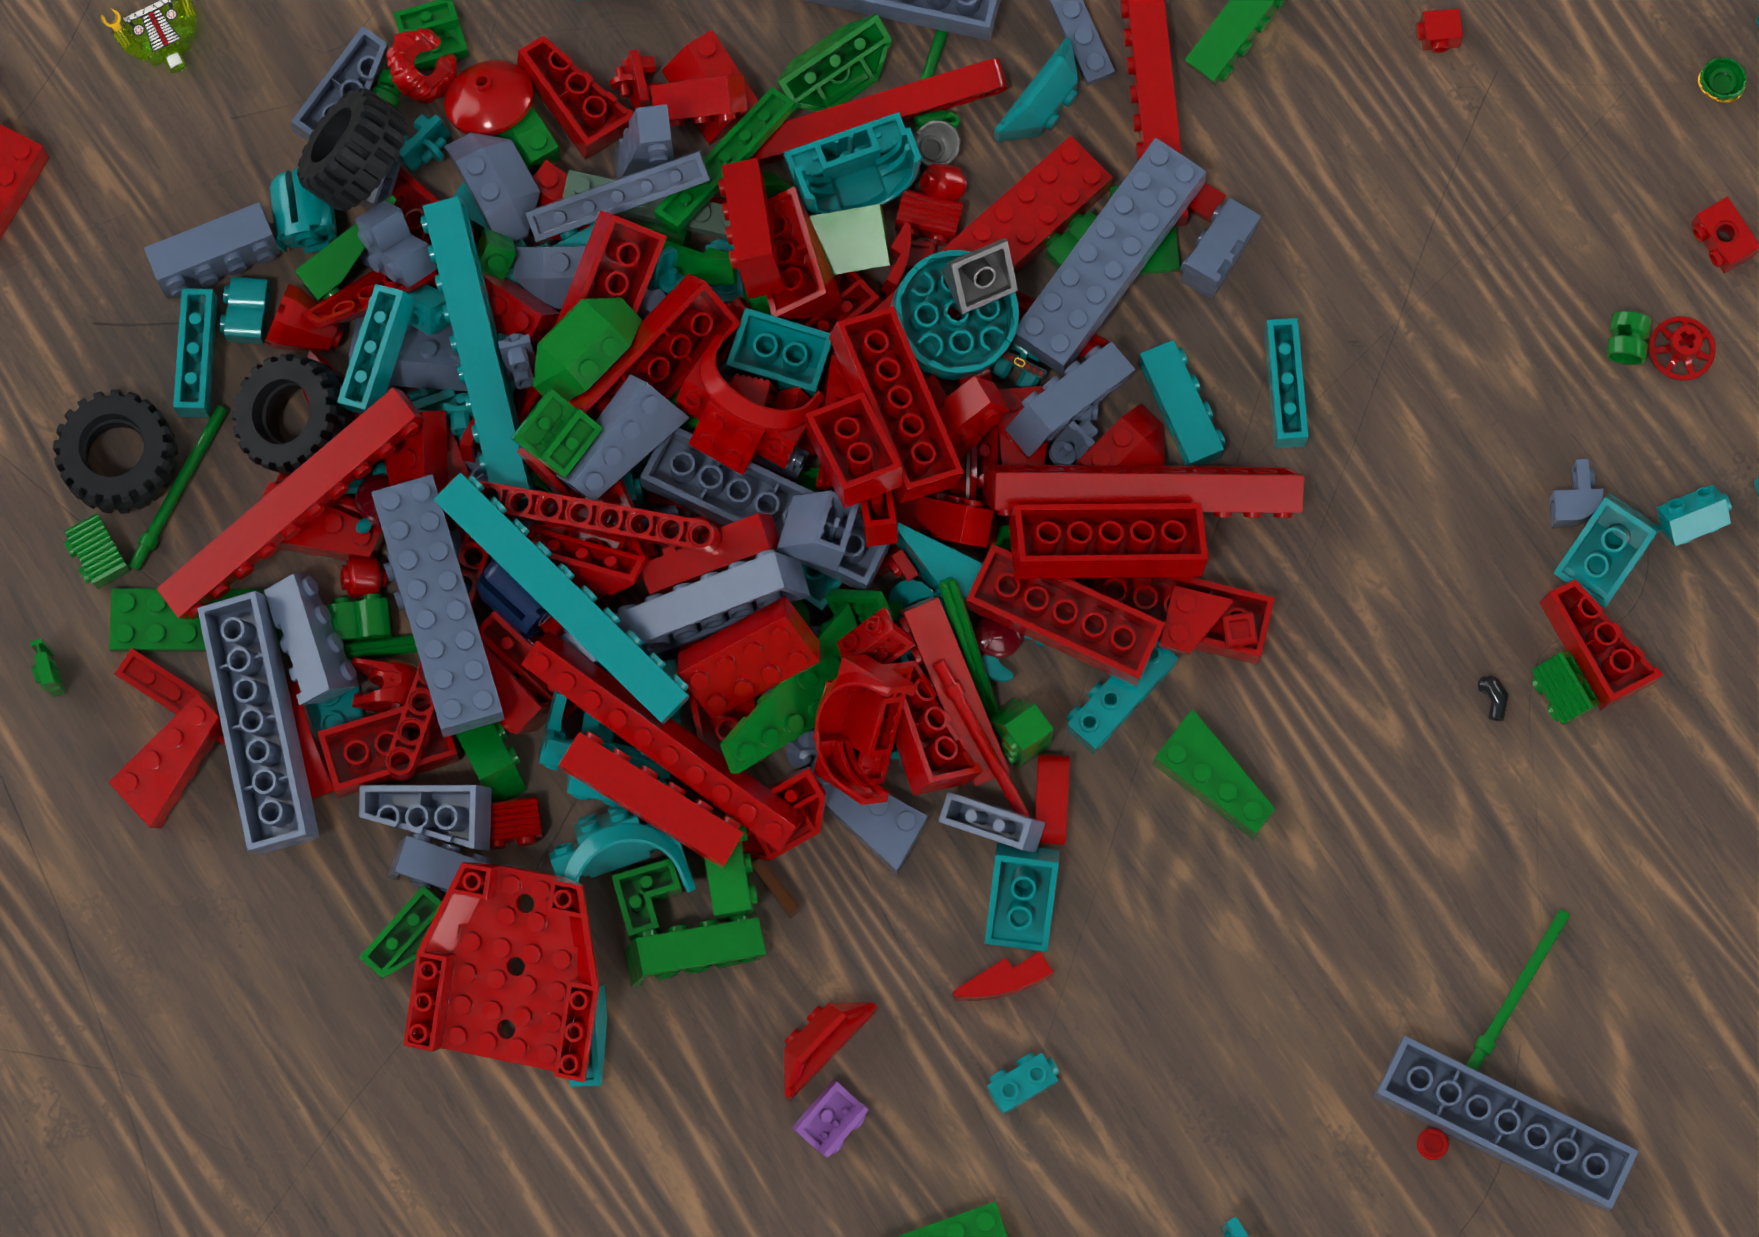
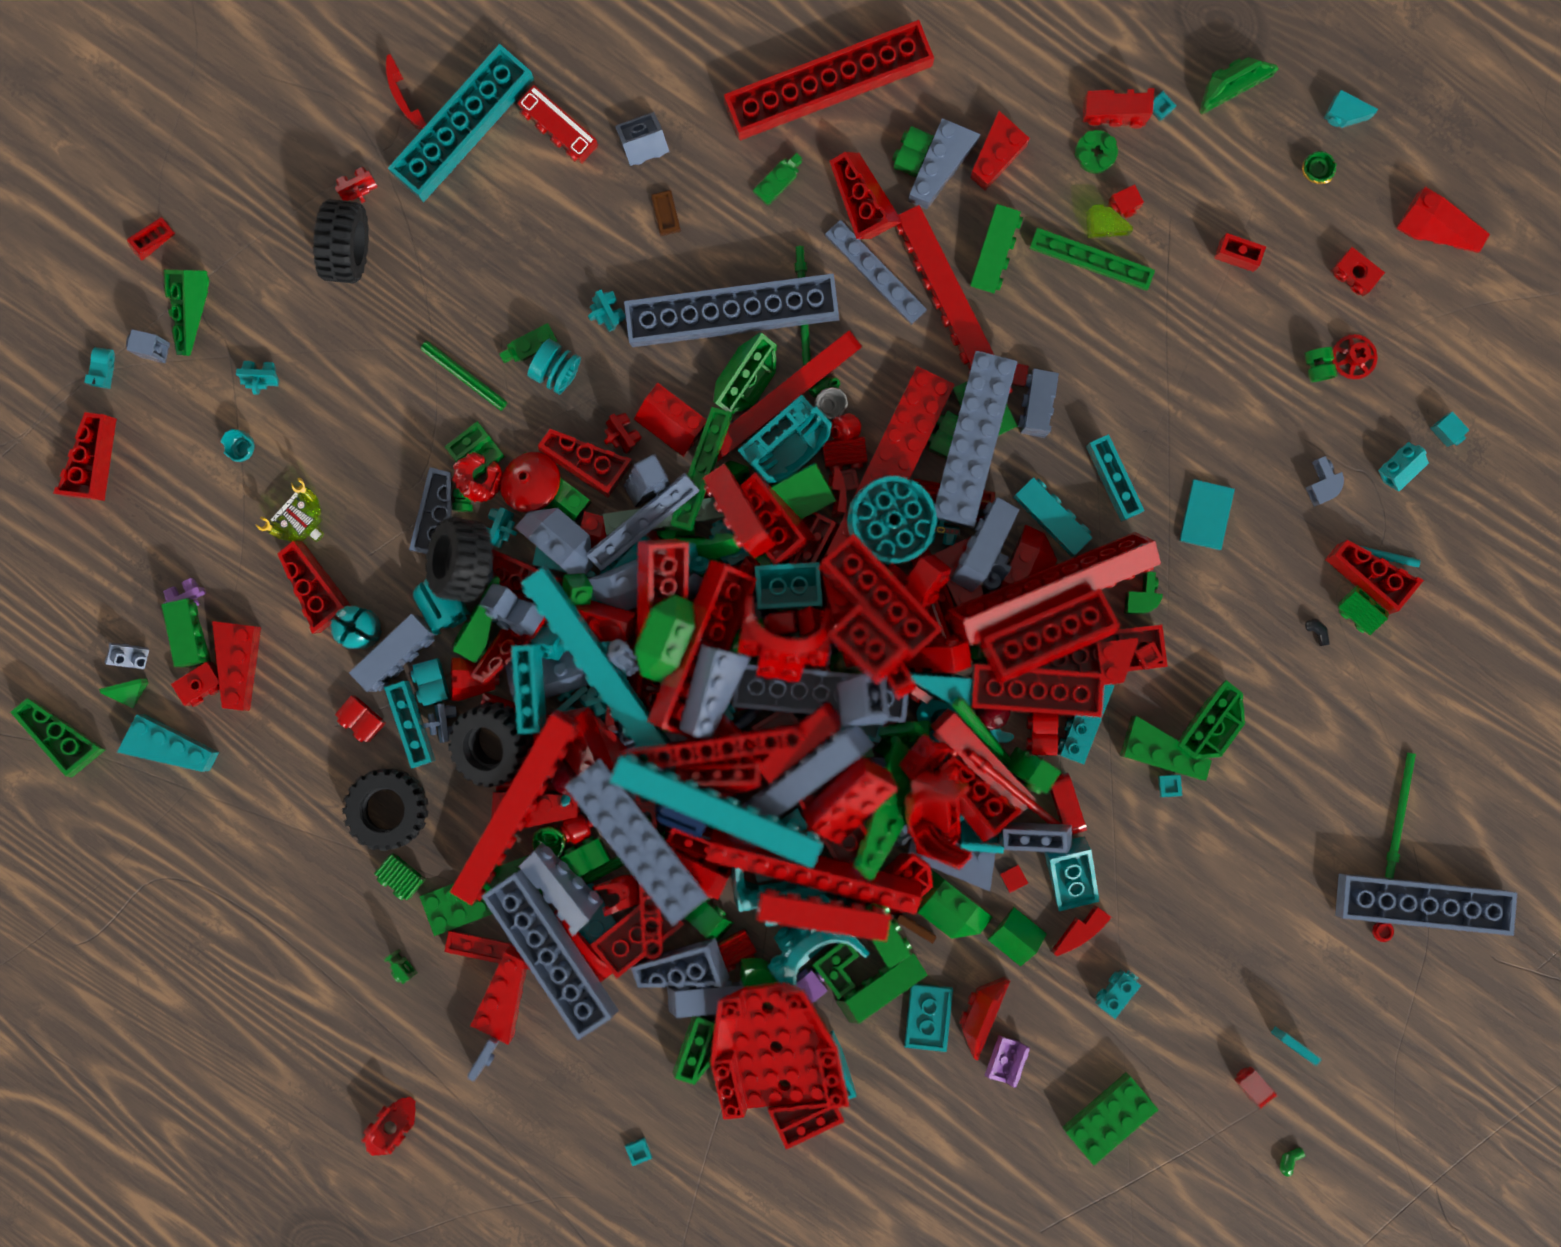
camera: 20 degrees left, 10 degrees up
(110, 832) = (484, 1058): none -> sand blue plate
(131, 323) = (360, 719): none -> red brick
(143, 134) = (312, 586): none -> red wedge
(148, 539) = (430, 855): green bar -> none
(180, 185) = (364, 619): none -> teal cylinder
(245, 357) = (441, 712): none -> sand blue hips
(267, 1051) = (638, 1151): none -> teal tile
(325, 573) = (551, 837): none -> green hair
(515, 1090) = (803, 1121): none -> red wedge
(528, 855) = (756, 972): none -> green brick
(556, 433) = (670, 704): green slope -> none
(602, 909) = (811, 983): none -> medium lavender brick
(701, 99) = (668, 433): red brick -> none
(745, 1020) = (928, 1017): none -> teal tile
(835, 881) = (952, 910): none -> green wedge
(900, 792) = (972, 842): none -> teal plate
(912, 956) = (1017, 937): none -> green slope
(939, 874) = (1013, 878): none -> red tile
(981, 276) = (902, 491): flat silver slope -> none
(1043, 98) = (888, 344): teal wedge -> none
(1056, 688) = (1043, 734): none -> red brick
(1206, 828) = (1170, 785): none -> teal plate
(1266, 565) = (1146, 600): none -> green brick
(1299, 762) = (1214, 724): none -> green wedge
(1366, 88) = (1092, 259): none -> green plate
(1396, 482) = (1206, 515): none -> teal tile
(1403, 48) = (1106, 223): none -> clear neon green slope
(1570, 149) = (1240, 252): none -> red brick
(1608, 549) = (1357, 509): teal slope -> none
(1640, 638) = (1394, 557): none -> teal bar

